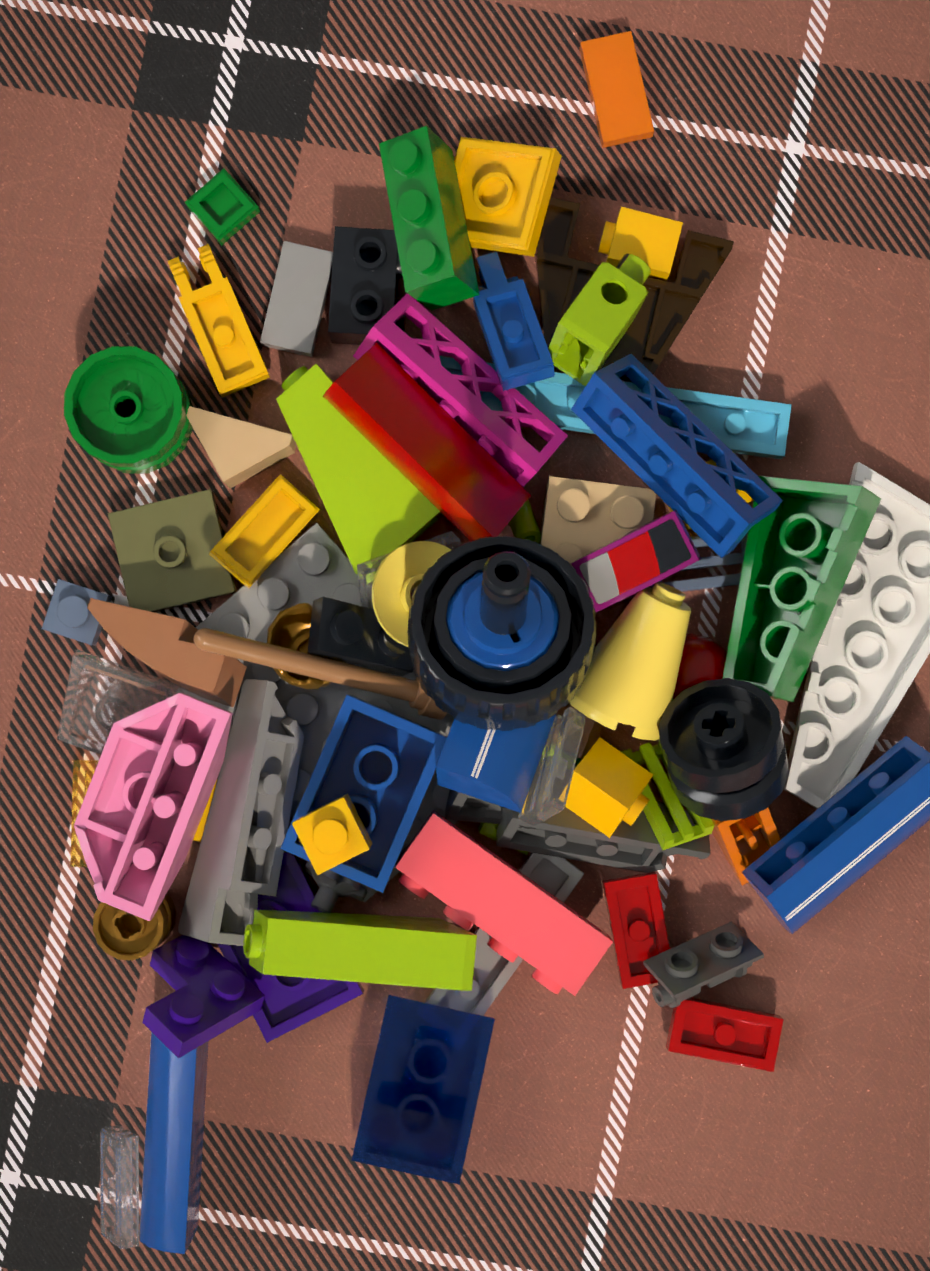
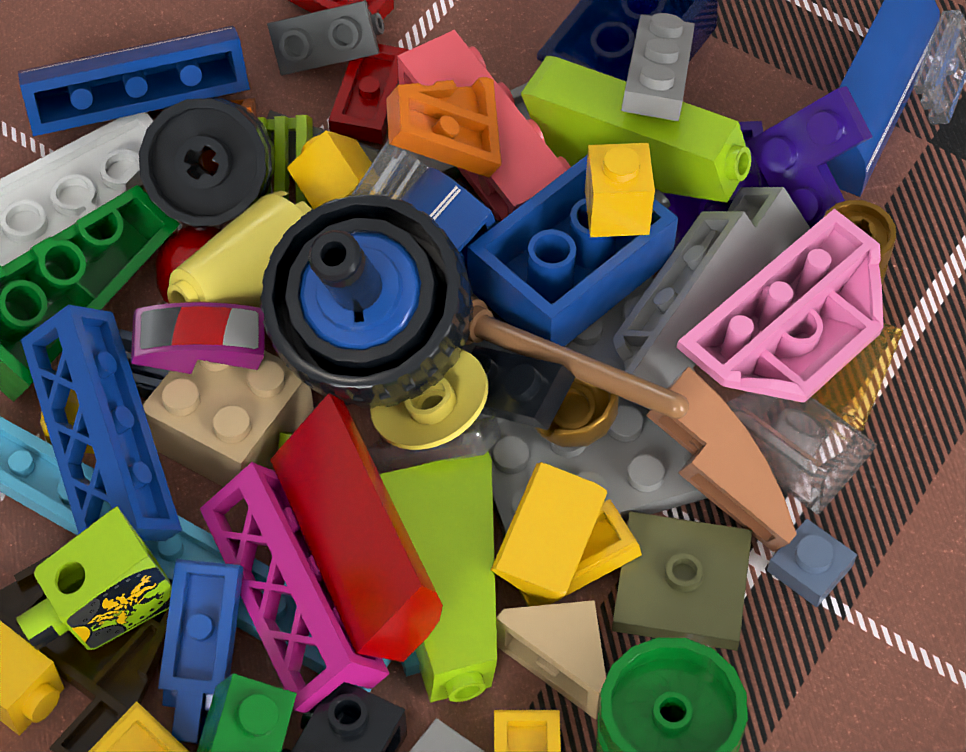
camera: 150 degrees left, 30 degrees down
(279, 523) = (549, 532): none -> yellow slope
(360, 1014) = (658, 67): none -> light grey plate
(521, 860) = (447, 123): none -> orange wing

